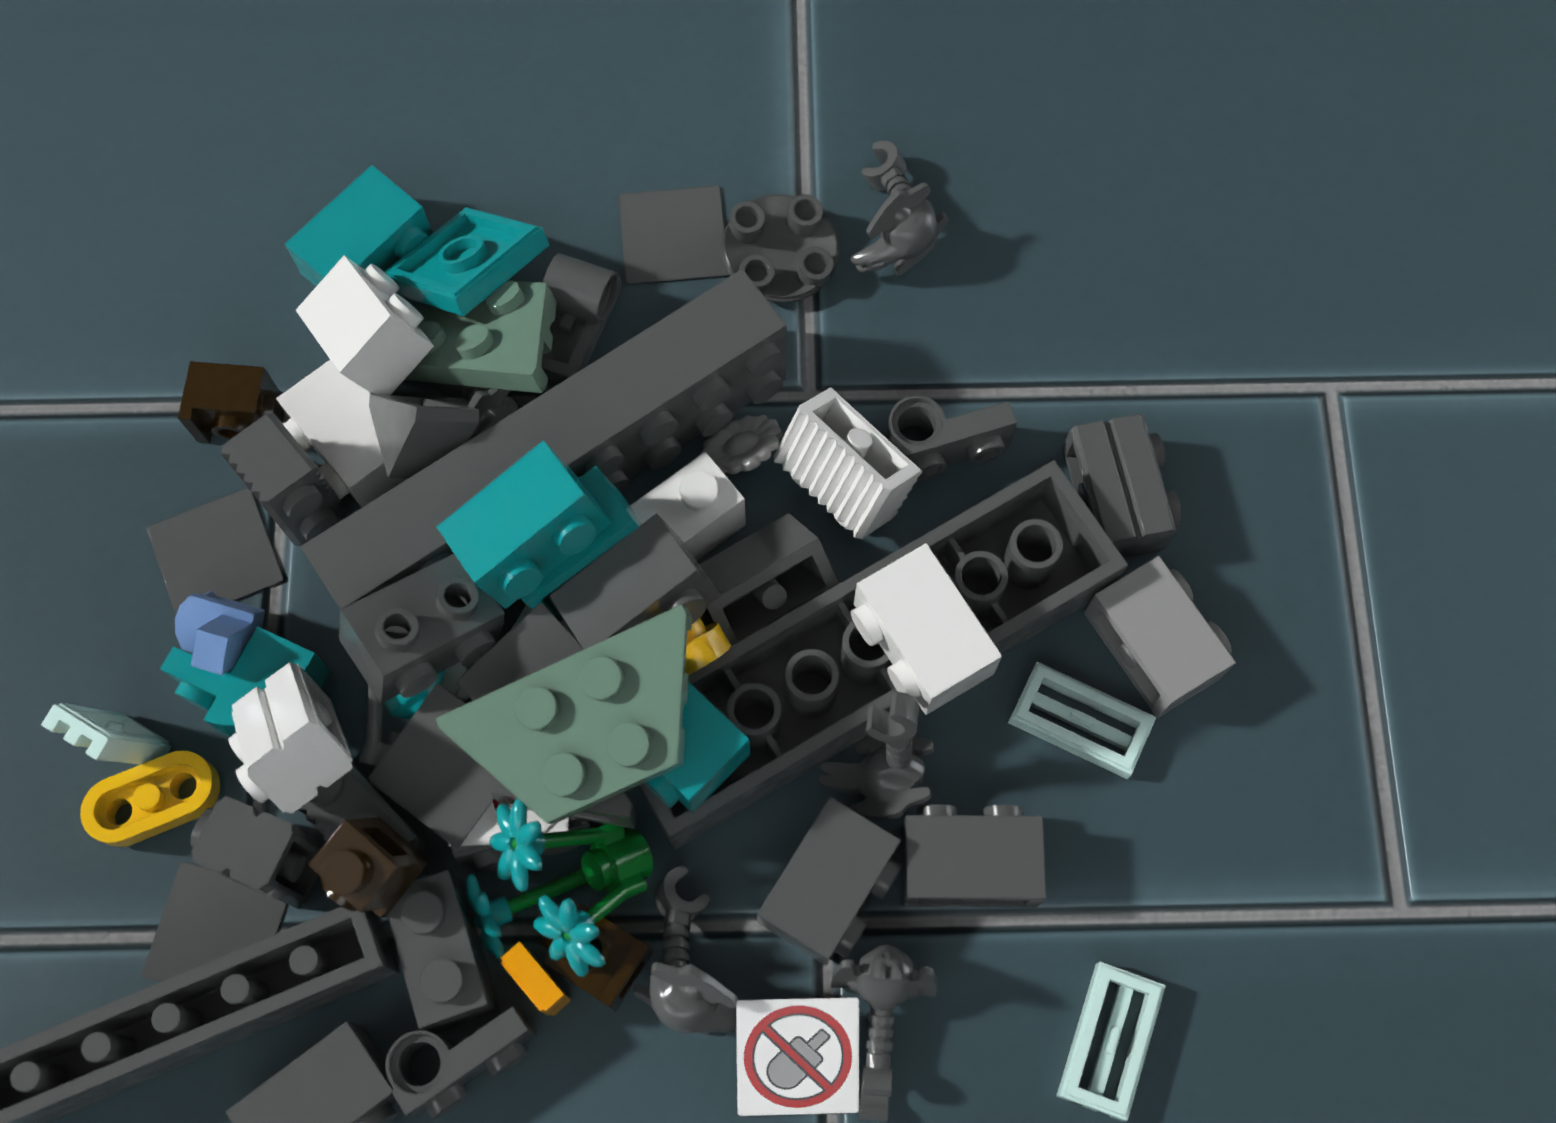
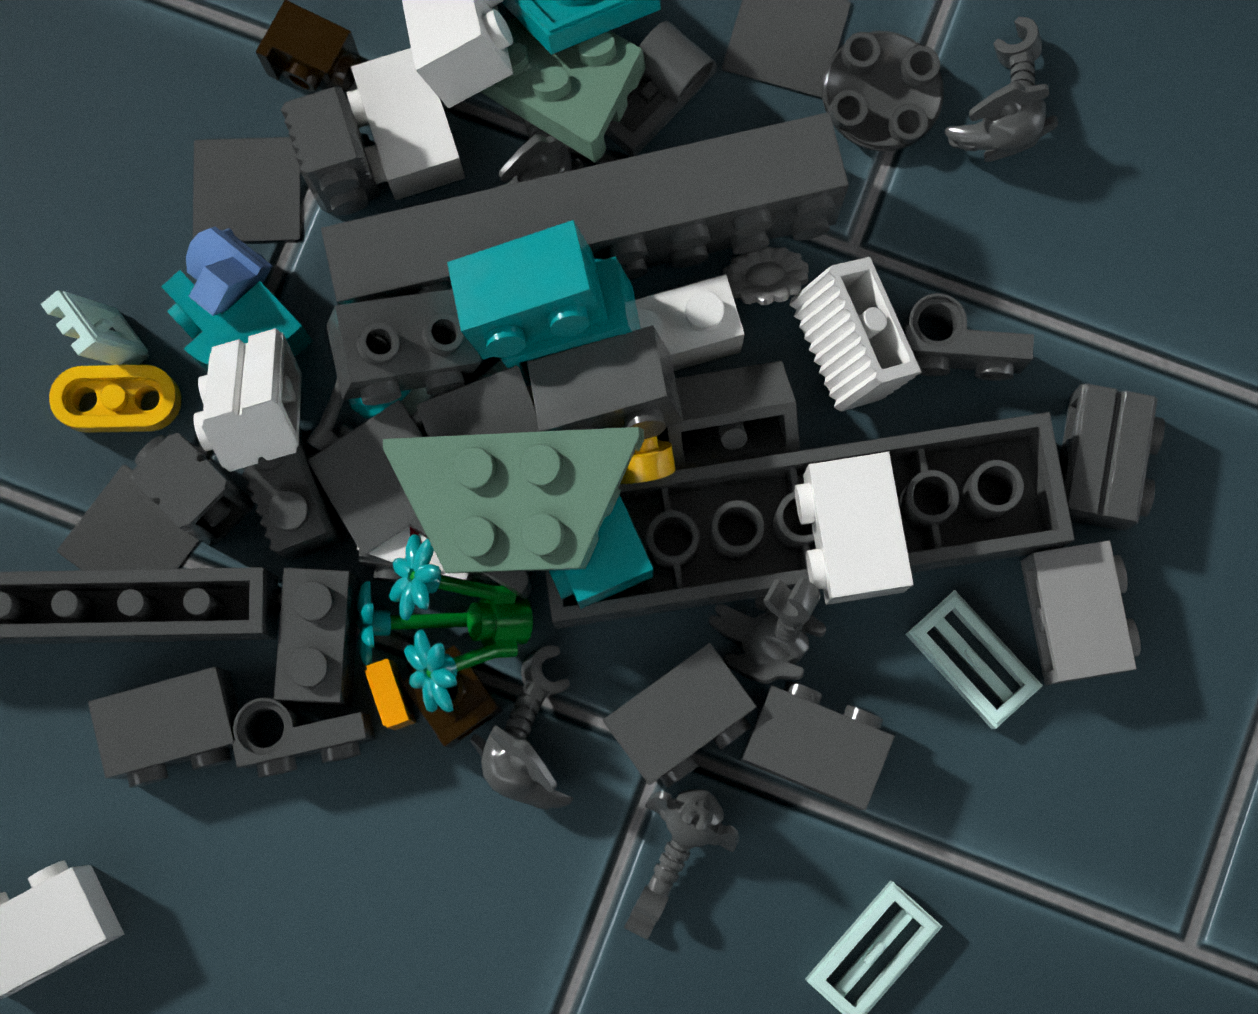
camera: 25 degrees right, 10 degrees up
(367, 866) = (269, 549): dark brown brick -> none
(418, 430) = (469, 152): dark grey slope -> none
(797, 1056) = (591, 853): sticker -> none

